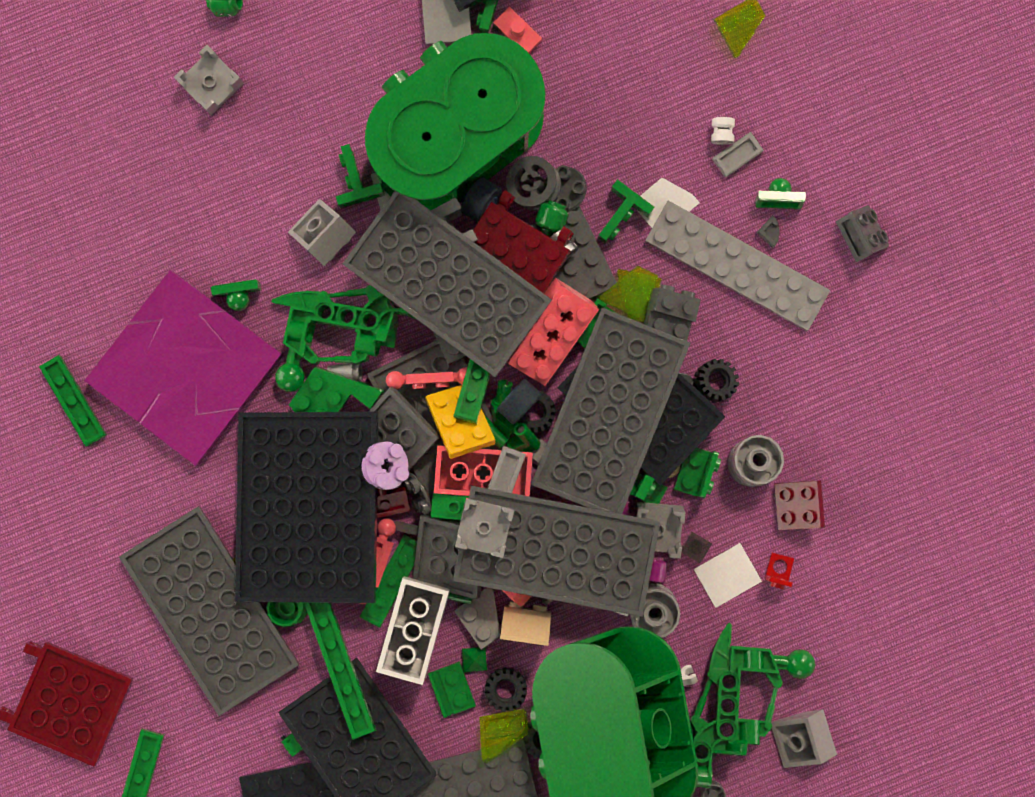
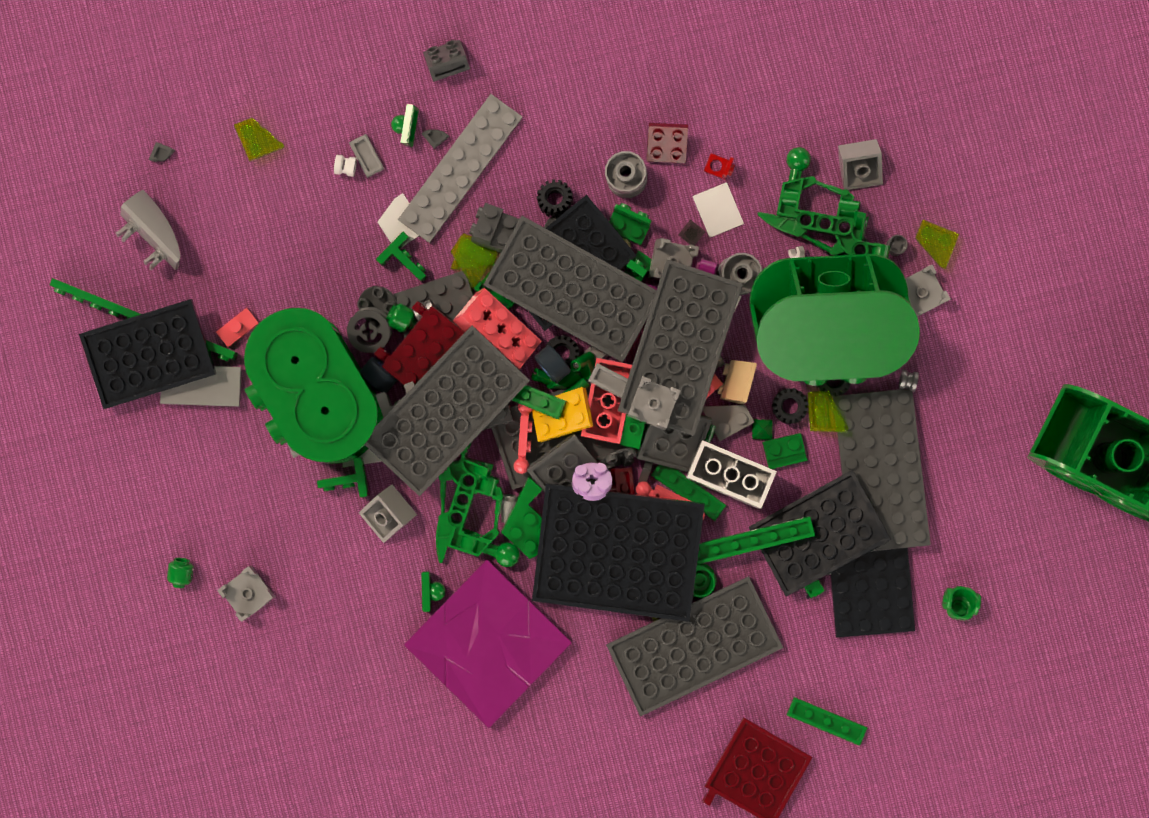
camera: 80 degrees left, 0 degrees up
(73, 400) = (503, 741): green tile -> none

